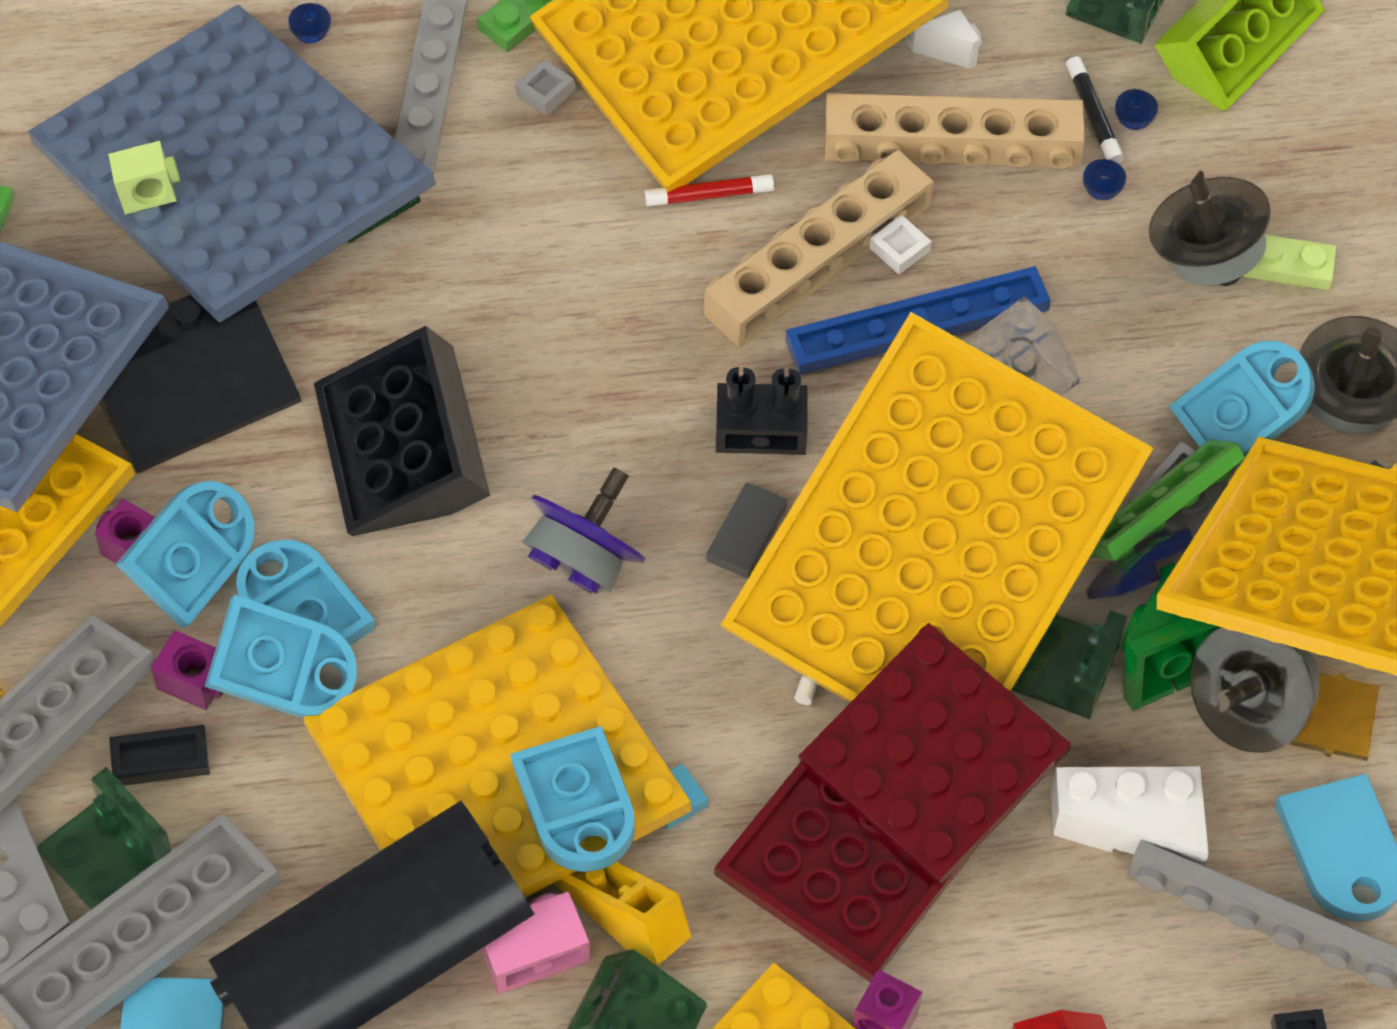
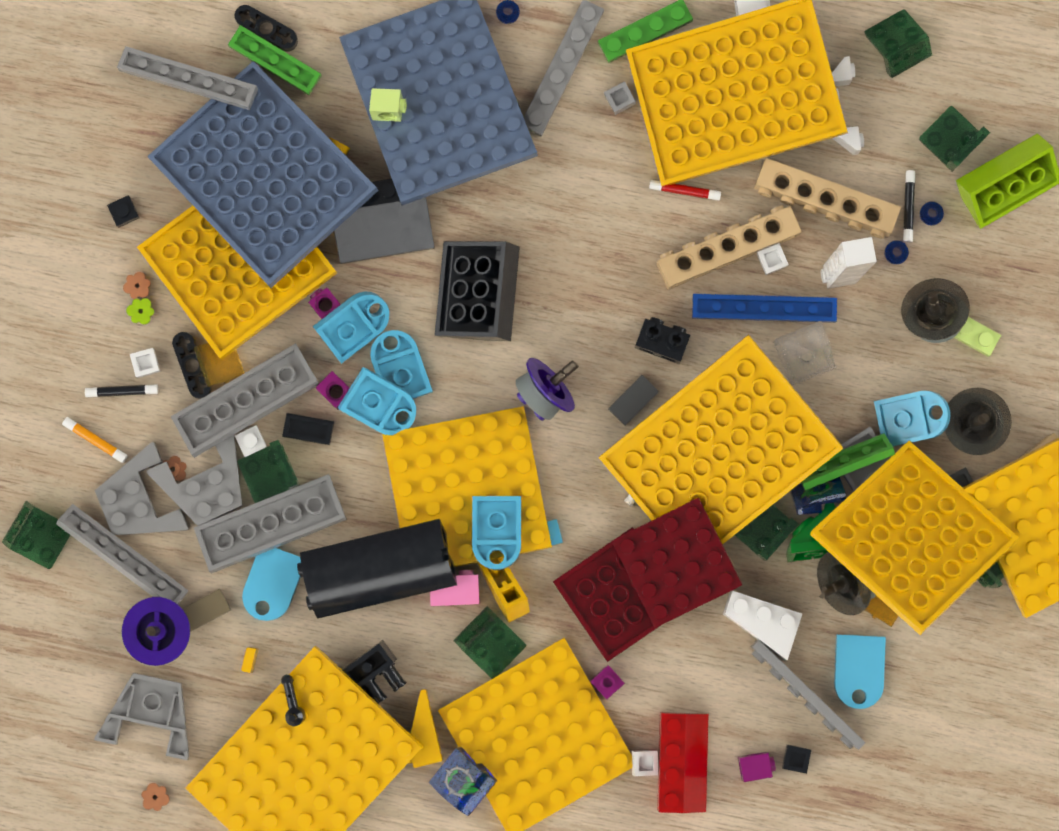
camera: 20 degrees right, 25 degrees up
(52, 806) = (250, 441): none -> white plate
(1036, 162) = (849, 263): none -> white brick

